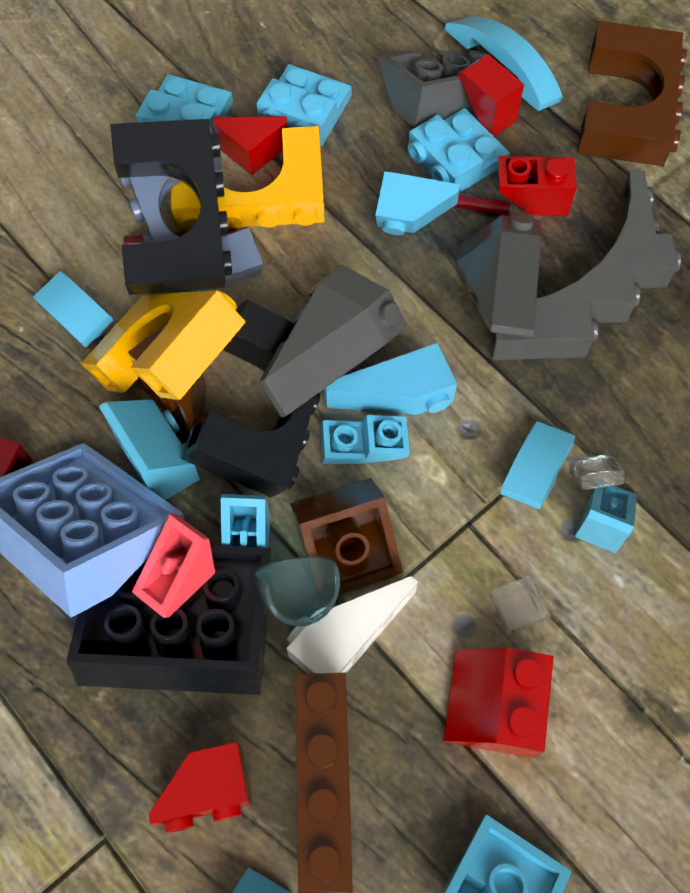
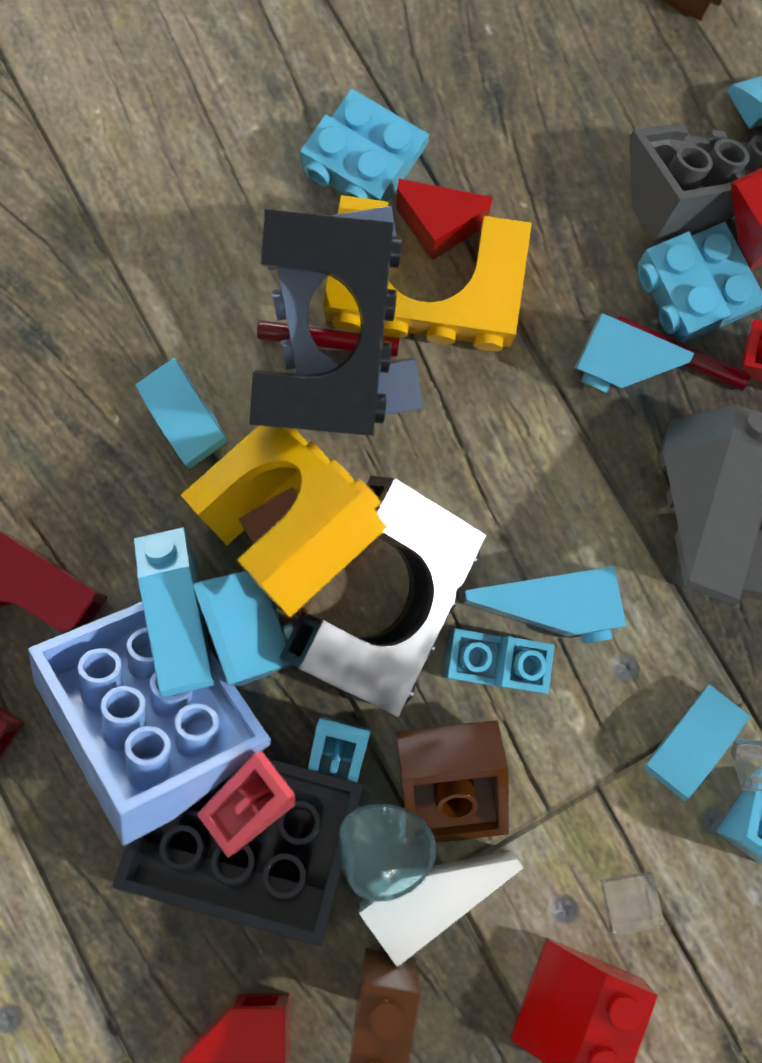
camera: 10 degrees right, 15 degrees up
(87, 441) = (173, 612): none -> medium azure slope
(305, 100) = (519, 167): medium azure plate -> none
(333, 334) = (501, 530): dark grey wedge -> none

